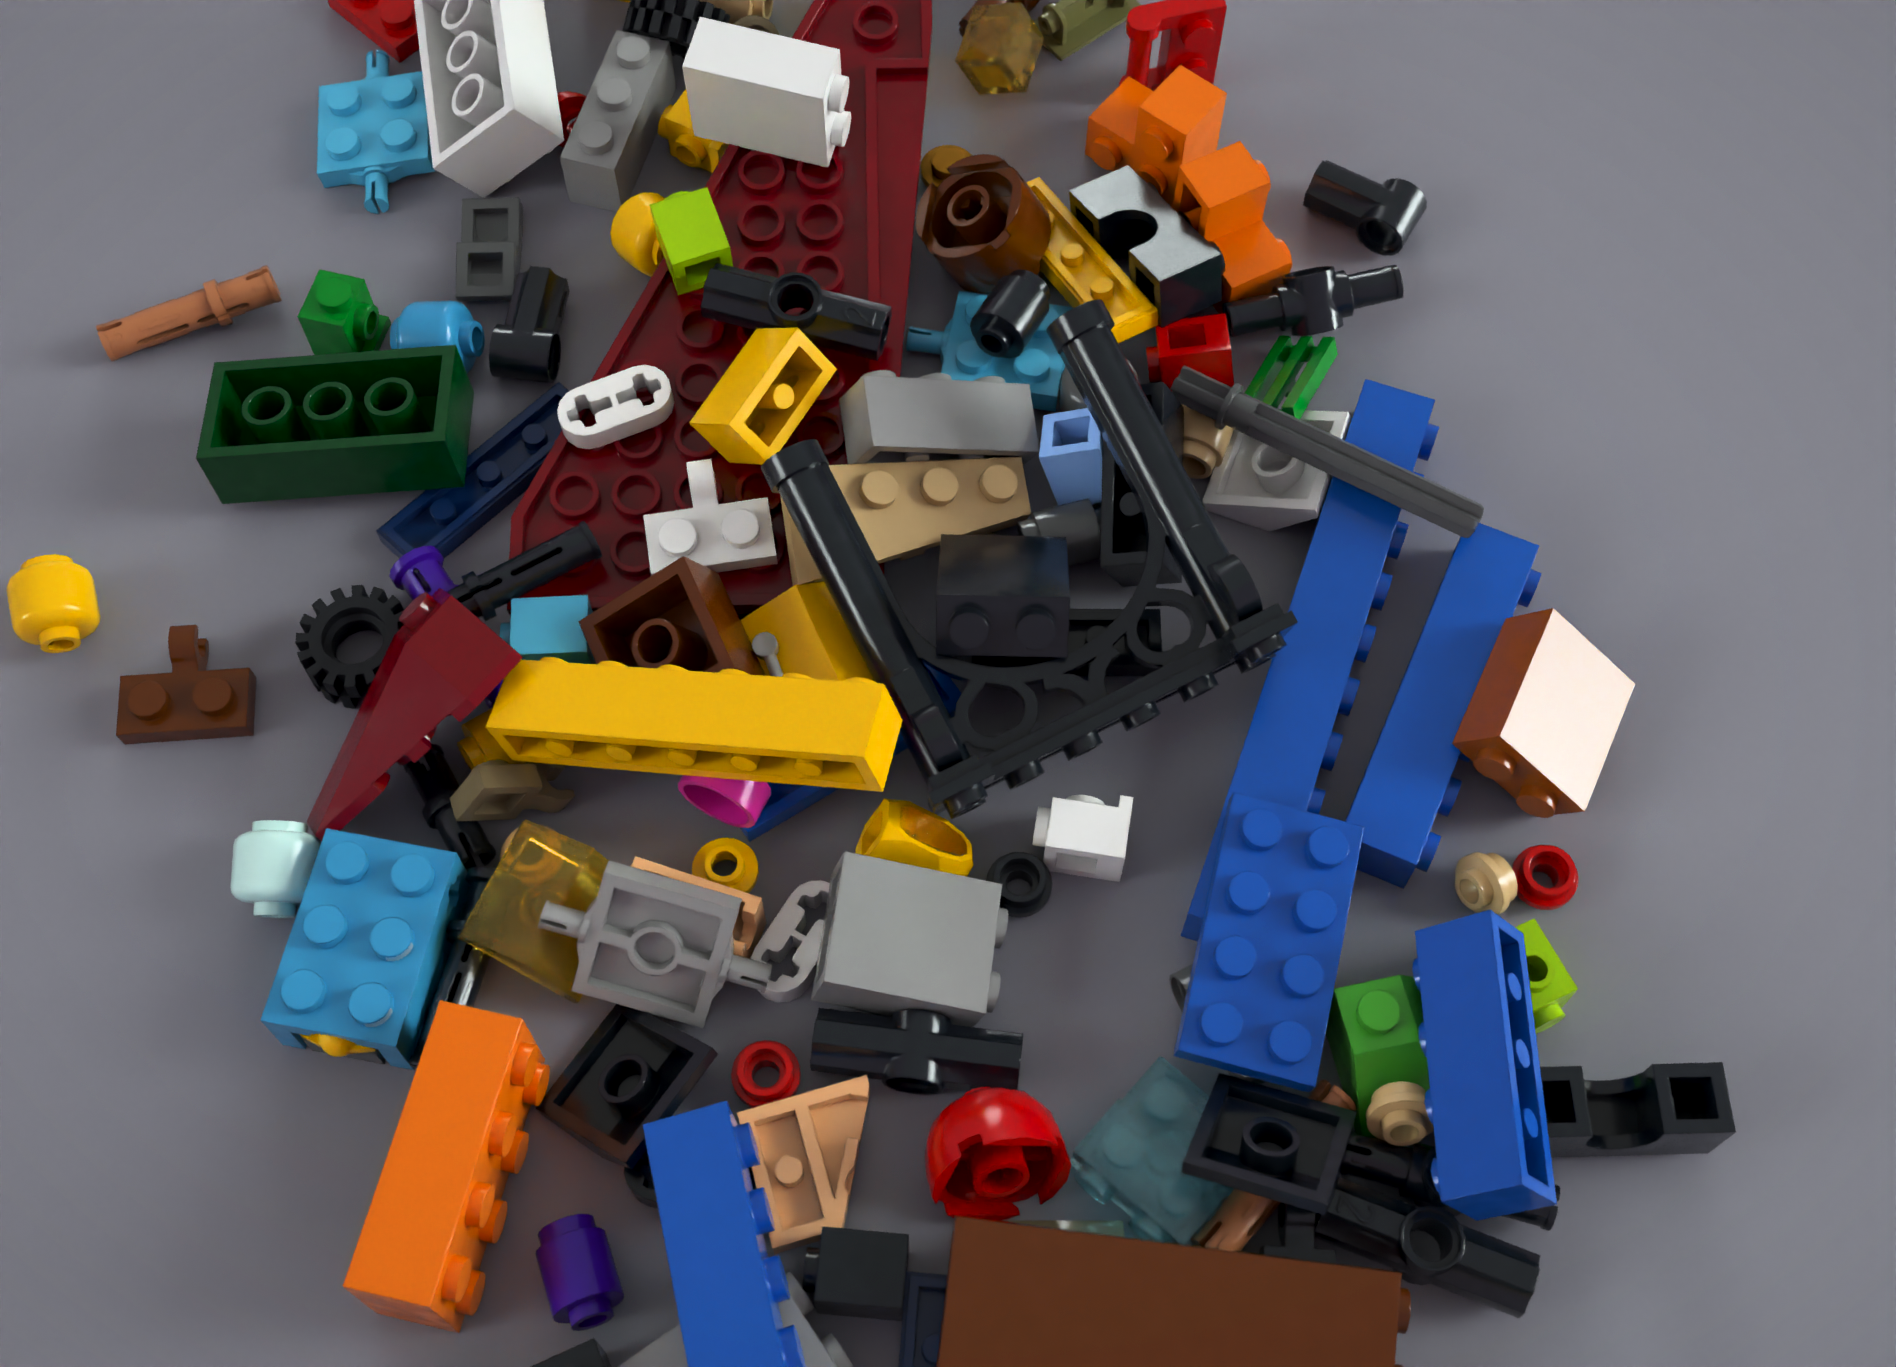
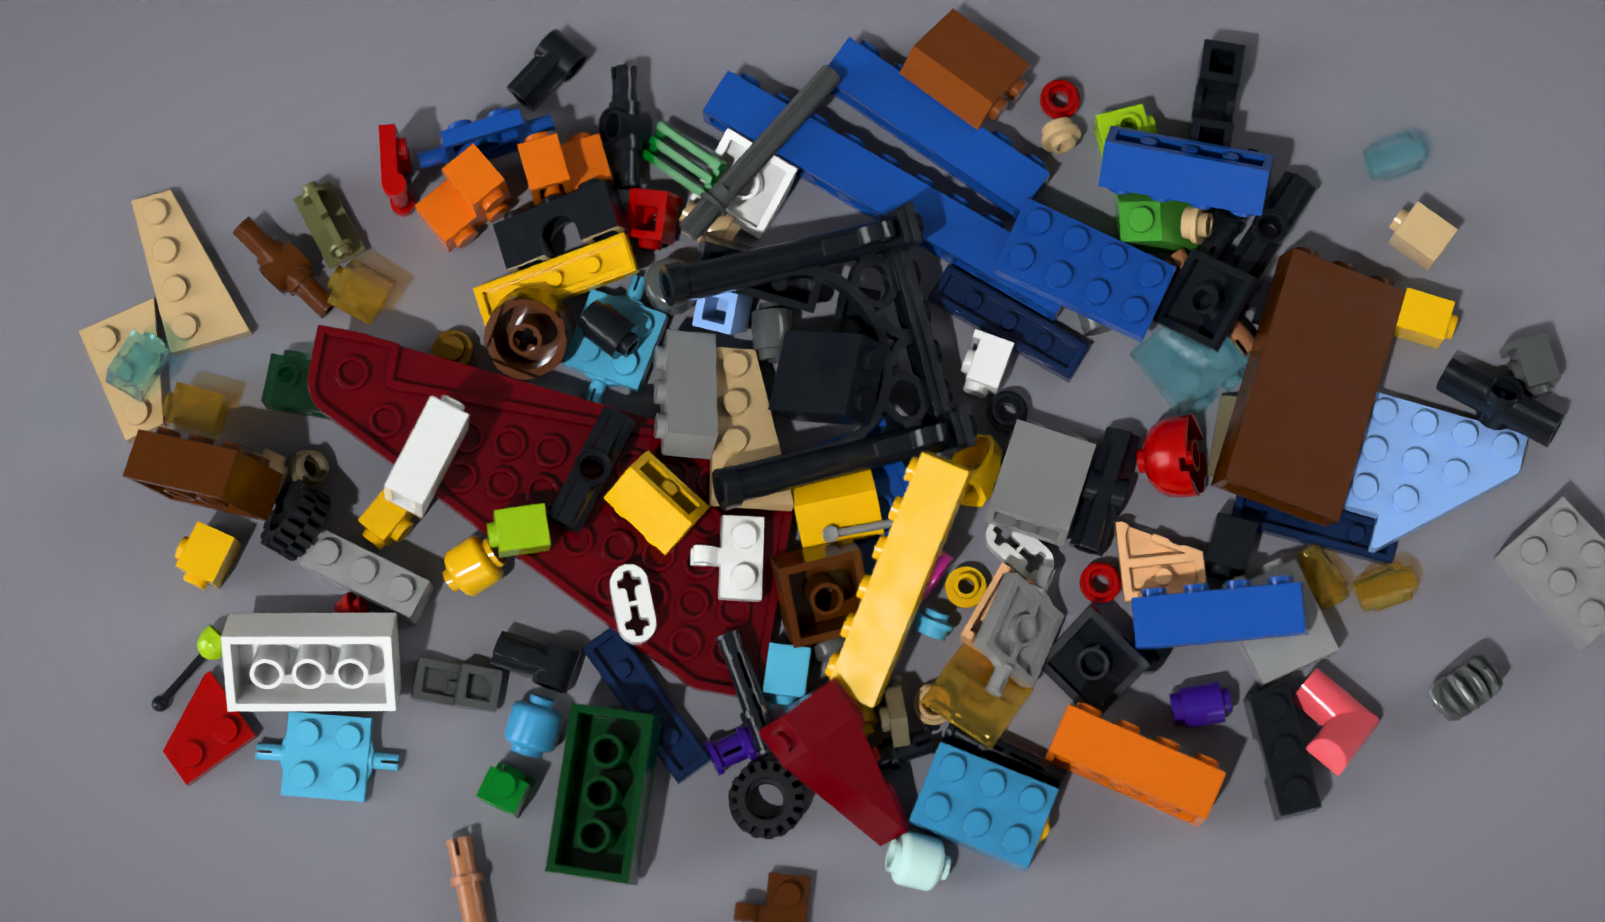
camera: 75 degrees left, 15 degrees up
(657, 829) = (933, 623): none -> medium azure plate
(1161, 868) = (1000, 316): none -> dark blue tile
(1254, 123) = (492, 136): none -> blue plate

